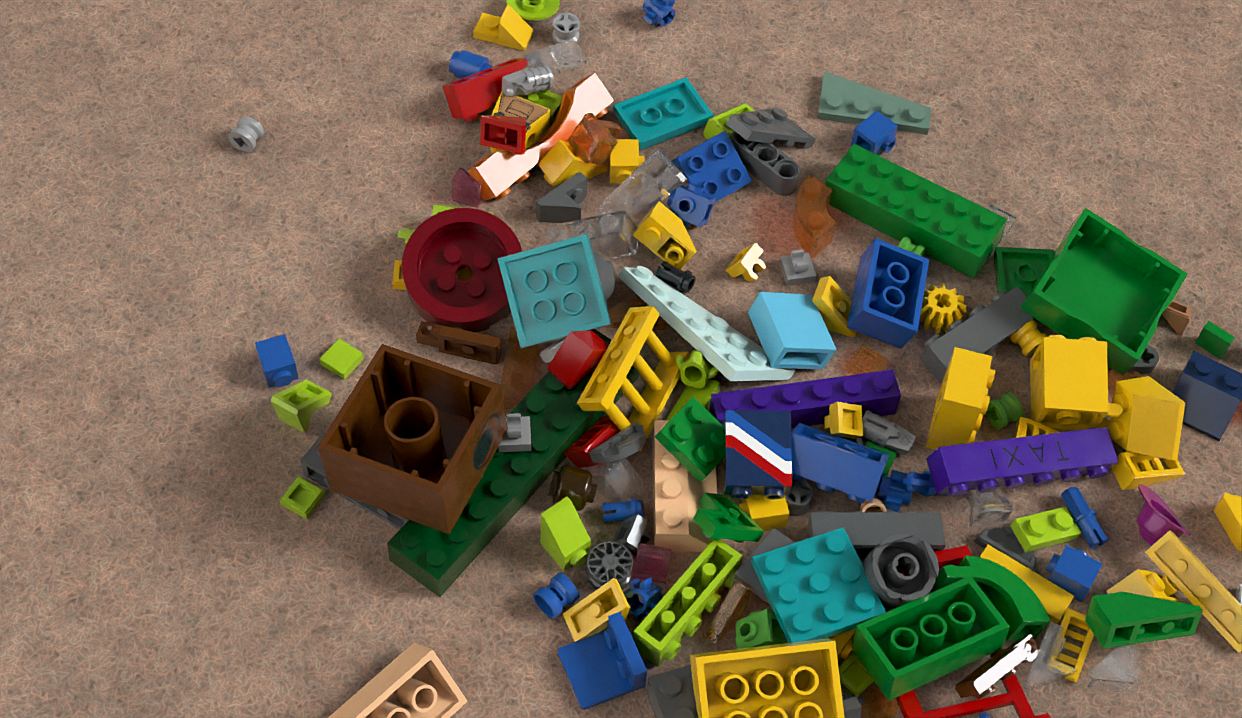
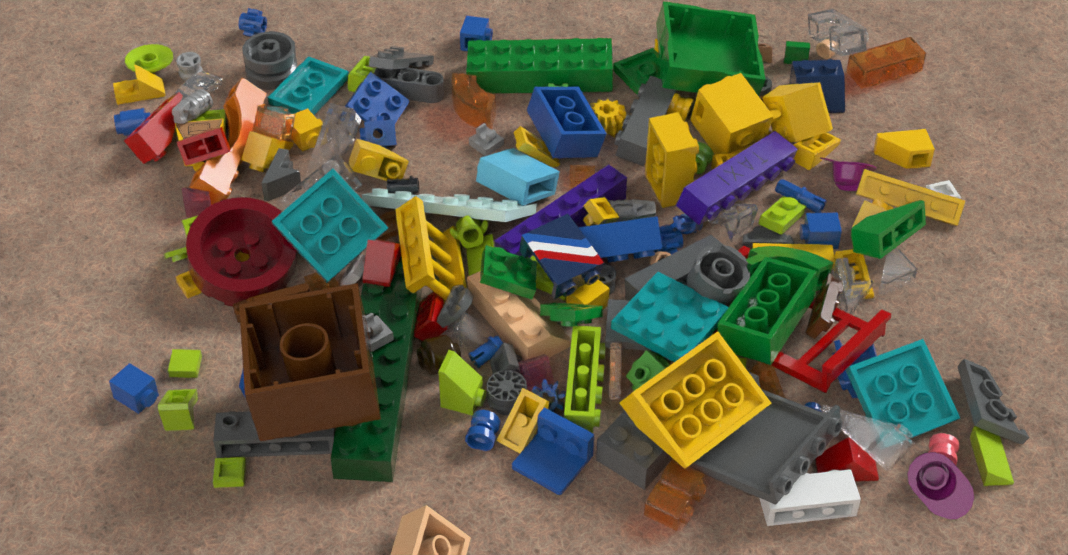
camera: 30 degrees left, 10 degrees down
(643, 61) = (269, 59): none -> dark grey wheel
(745, 261) = (448, 153): yellow tile -> none
(854, 102) = (447, 21): sand green wing -> none

